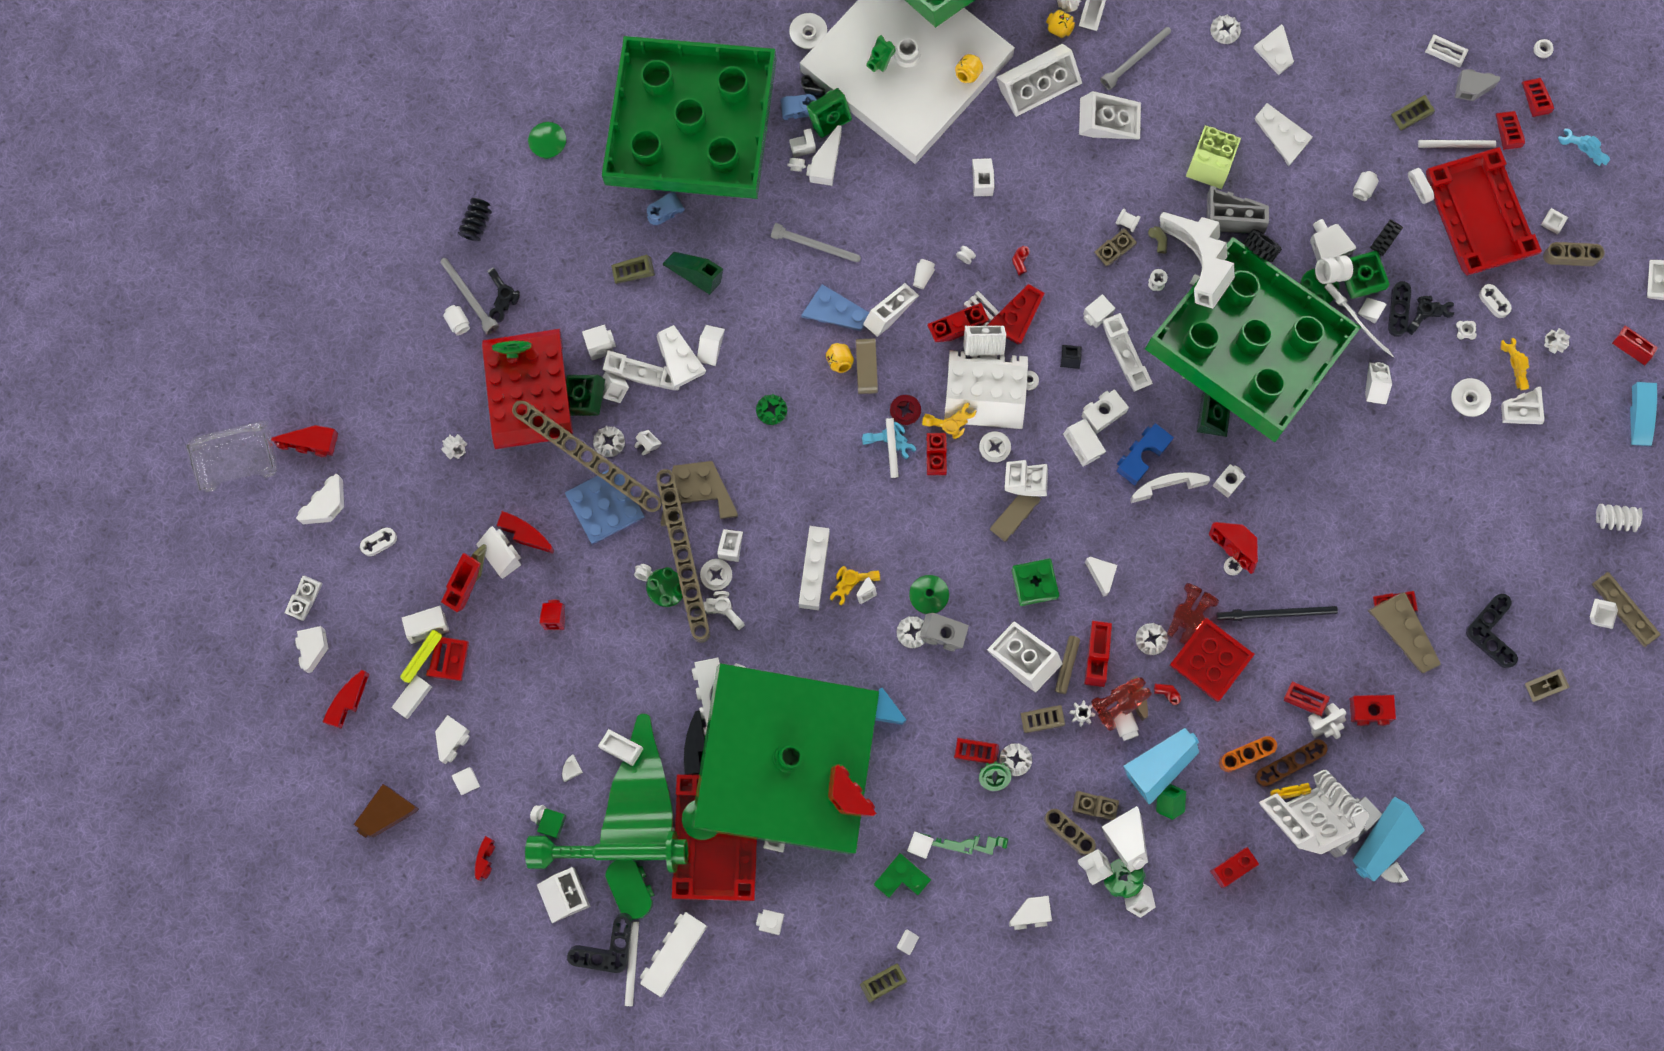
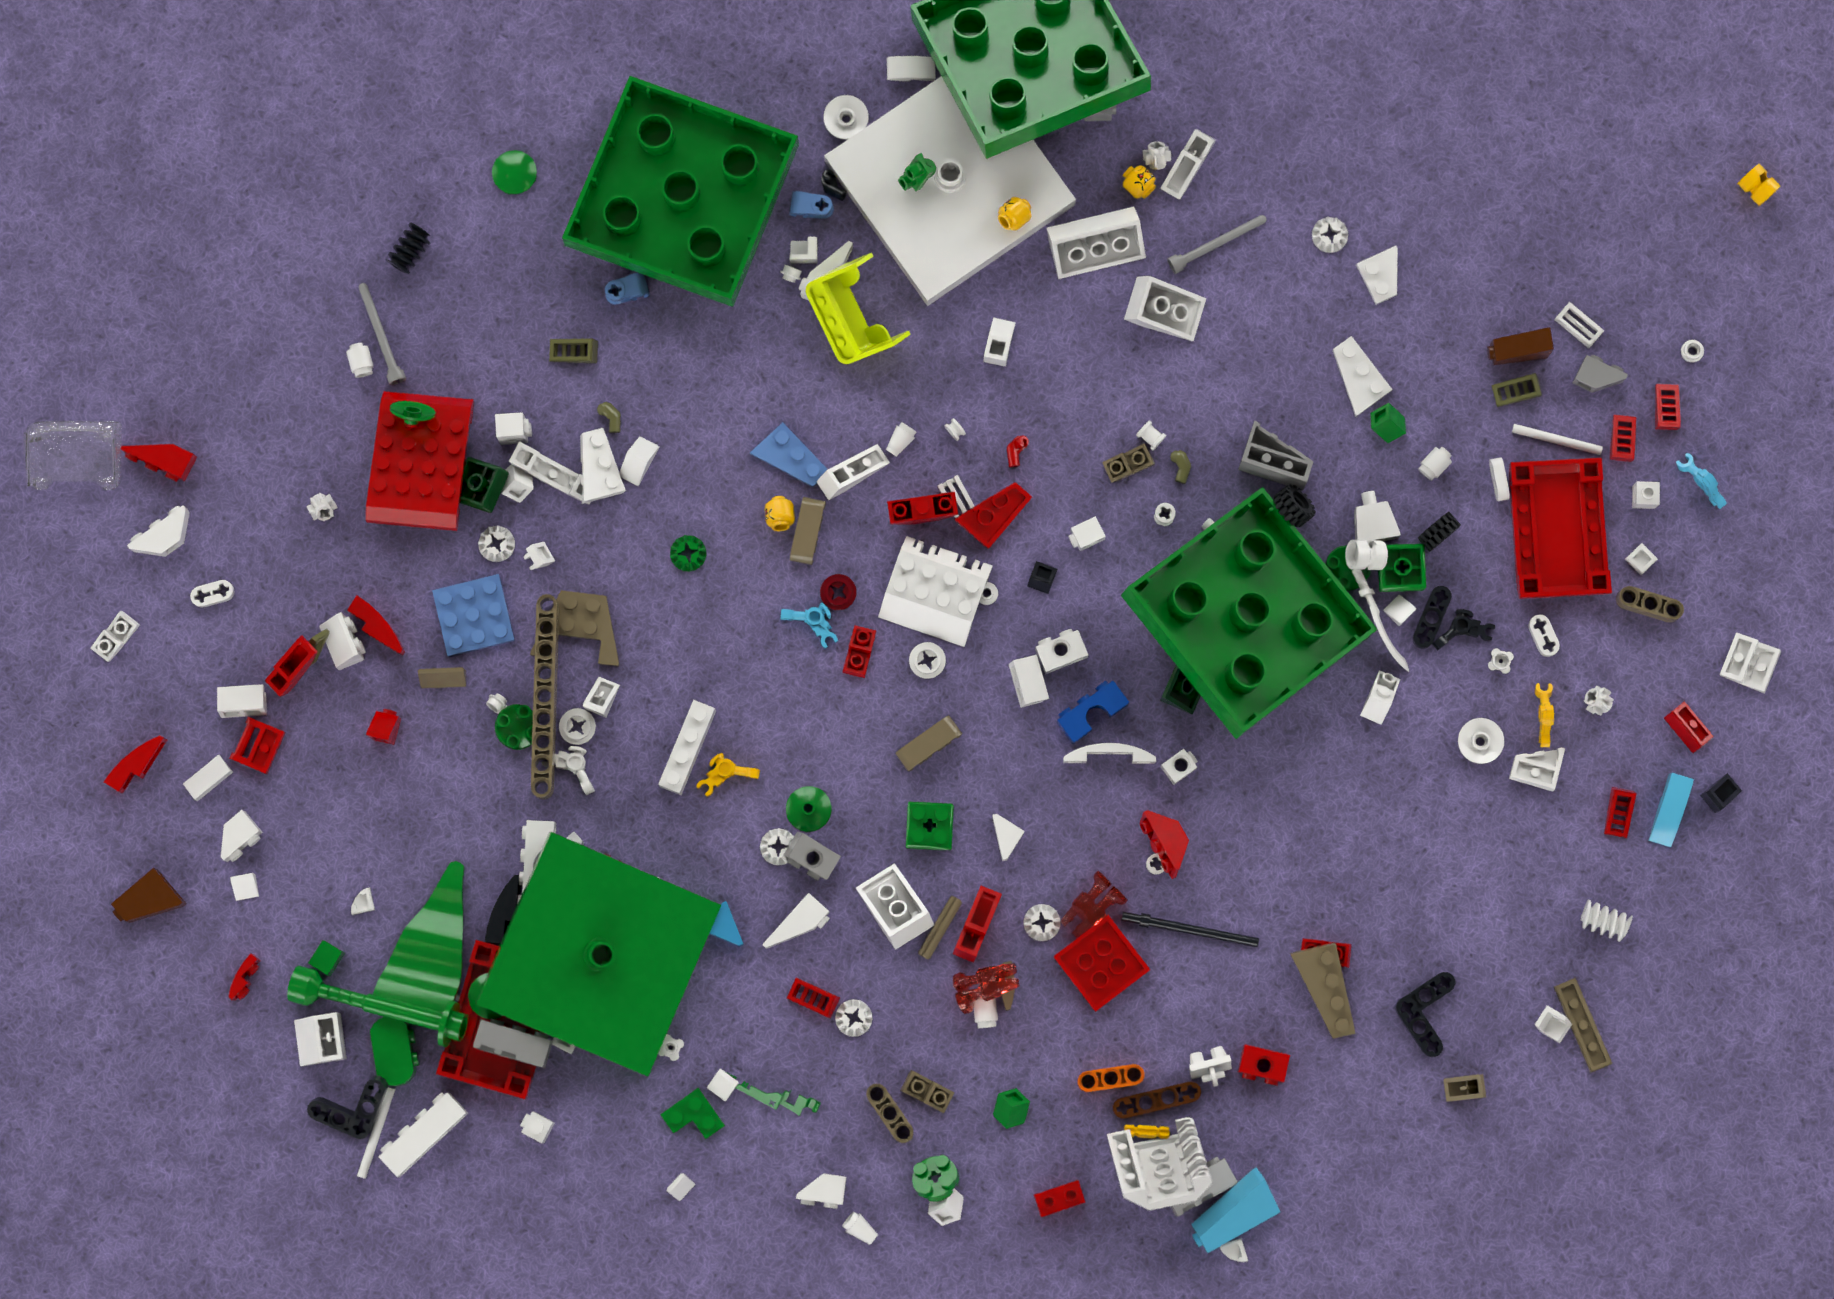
camera: 15 degrees right, 5 degrees up
(312, 646) = (112, 694): white slope -> none
(420, 656) = (228, 735): neon yellow axle -> none
(505, 295) = (421, 345): black piece -> none
(536, 813) = (313, 942): white plate -> none
(577, 453) = (455, 553): dark tan beam -> none
(591, 562) = (442, 677): none -> dark tan slope
(620, 747) = (422, 893): white tile -> none
(680, 313) = (614, 416): none -> olive arm
(696, 270) = (642, 370): dark green slope -> none
(732, 854) = (513, 1043): none -> light grey wedge
(780, 232) = (750, 349): light grey piece -> none
(829, 112) = (842, 223): green brick -> none
(847, 795) = (654, 1011): red slope -> none
(848, 186) = (842, 317): none -> neon yellow windscreen
(866, 591) = (738, 788): white slope -> none
(867, 990) = (623, 1227): olive slope -> none
(871, 828) = (674, 1053): none -> white plate
(892, 447) = (810, 632): white bar -> none
(950, 687) = (801, 920): none -> white slope
(952, 424) = (884, 622): yellow piece -> none
(984, 340) = (946, 536): white brick -> none
(1001, 780) = (815, 1033): gear -> none
(1026, 479) = (951, 707): white slope -> none
(1059, 713) = (914, 981): dark tan slope -> none
(1069, 937) = (859, 1228): none -> white cone
(1082, 707) = (943, 979): white gear -> none
(1096, 866) = (909, 1158): white panel -> none
(1125, 352) = (1105, 590): white slope -> none
(1128, 839) = (951, 1137): white slope -> none
(1162, 764) = (1012, 1064): medium azure slope -> none
(1169, 691) = (1045, 987): red arm -> none
(1203, 240) = (1225, 527): white arch -> none
(1213, 157) = (1270, 384): yellowish green slope -> none
(1317, 163) = (1388, 423): none -> green panel
(1318, 711) = (1208, 1046): red tile -> none
(1409, 76) = (1521, 347): none -> reddish brown slope
(1543, 168) = (1646, 495): none -> white brick
(1608, 419) = (1615, 792): none -> red slope

